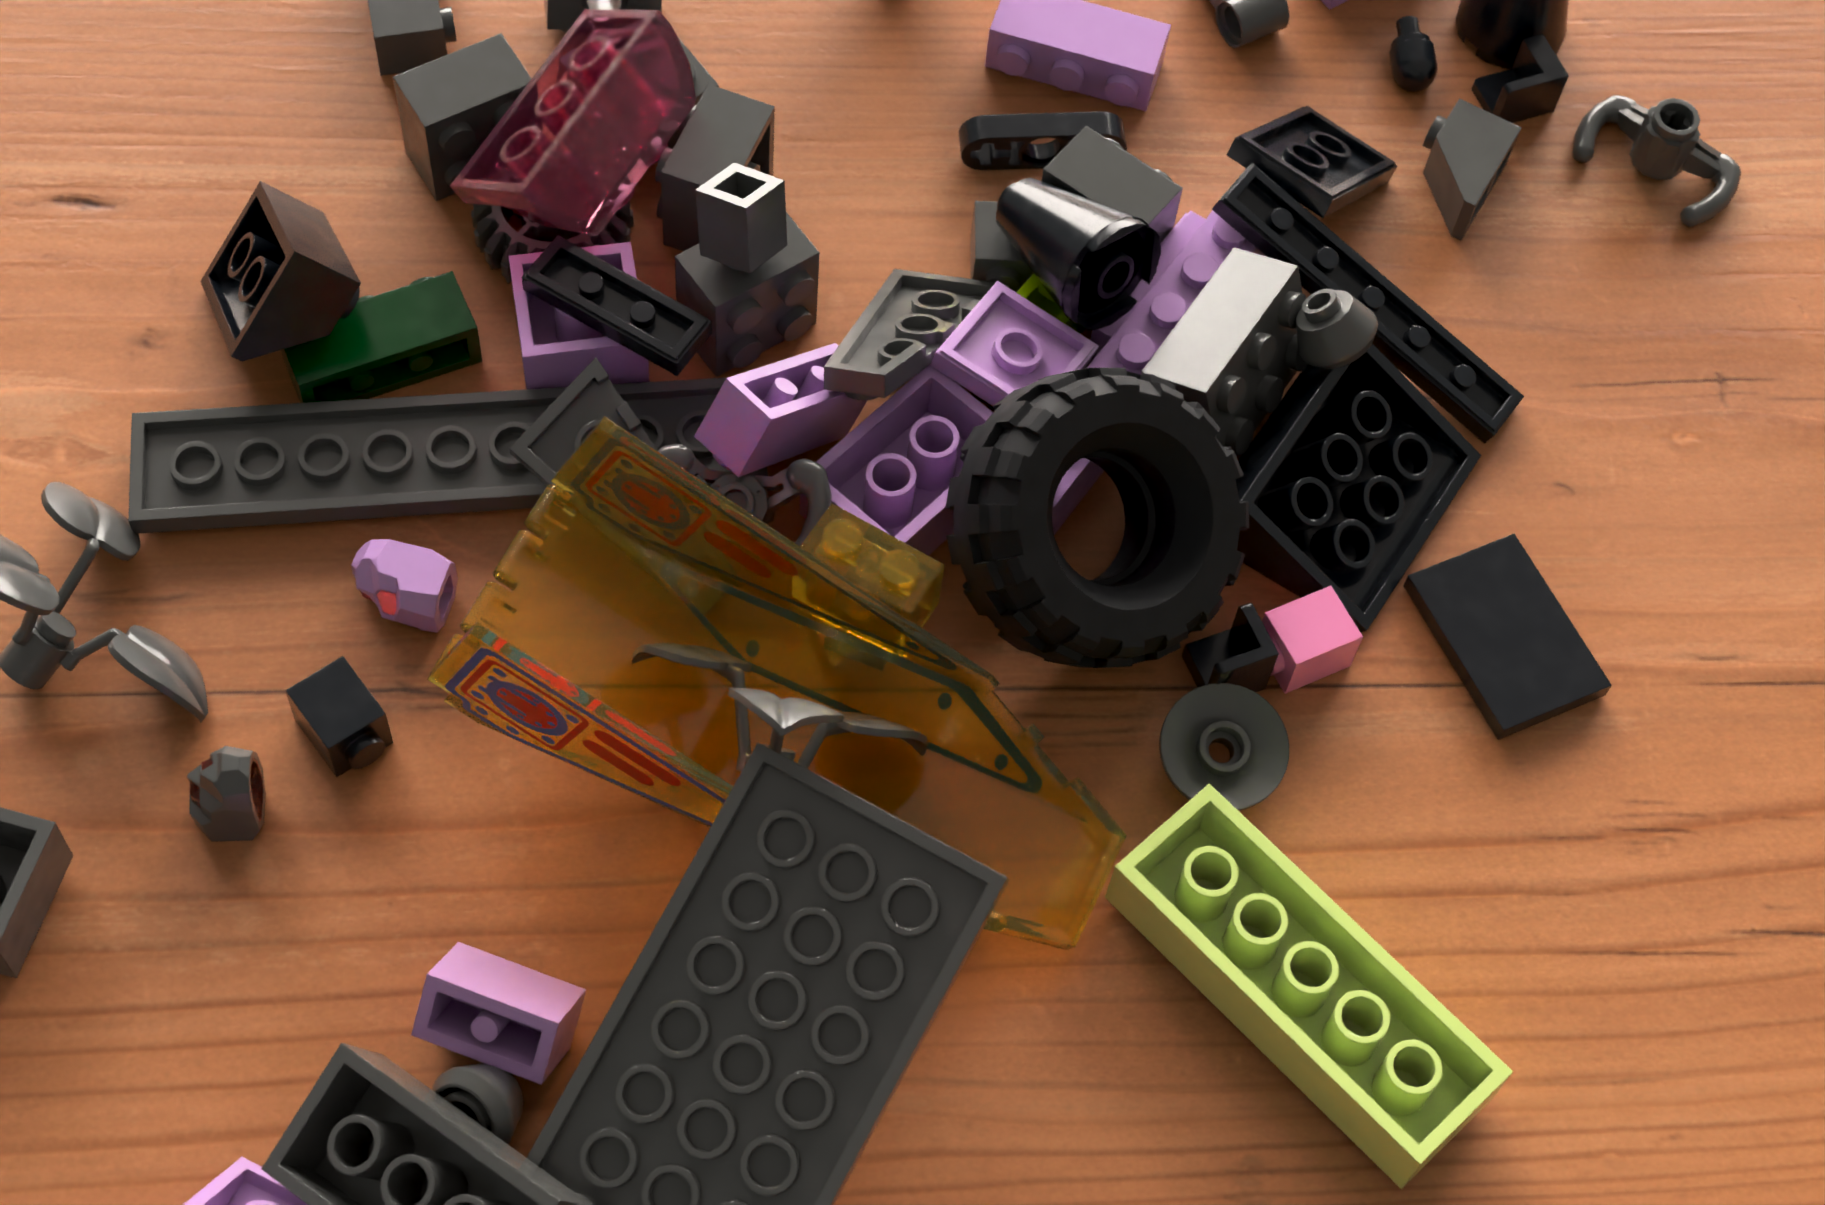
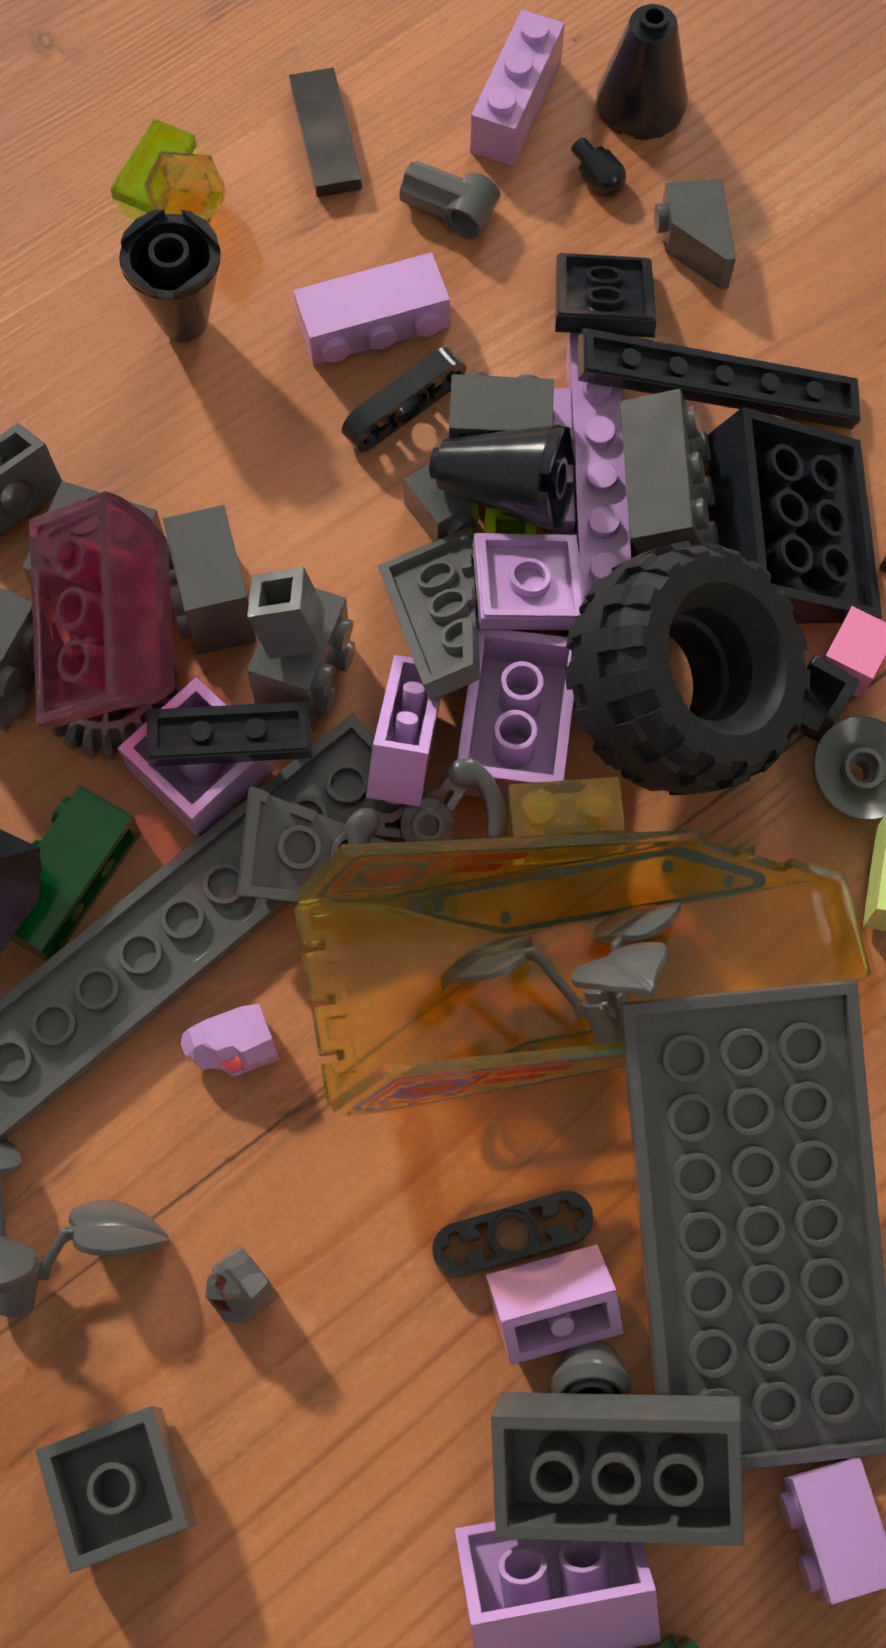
camera: 30 degrees left, 10 degrees up
(340, 717) = (270, 1172): black brick -> none
(480, 898) = (549, 1209): none -> black beam
(1334, 329) = (731, 419): dark grey cone -> none
(1527, 88) = (690, 141): black panel -> none
(1663, 147) = (811, 132): dark grey piece -> none

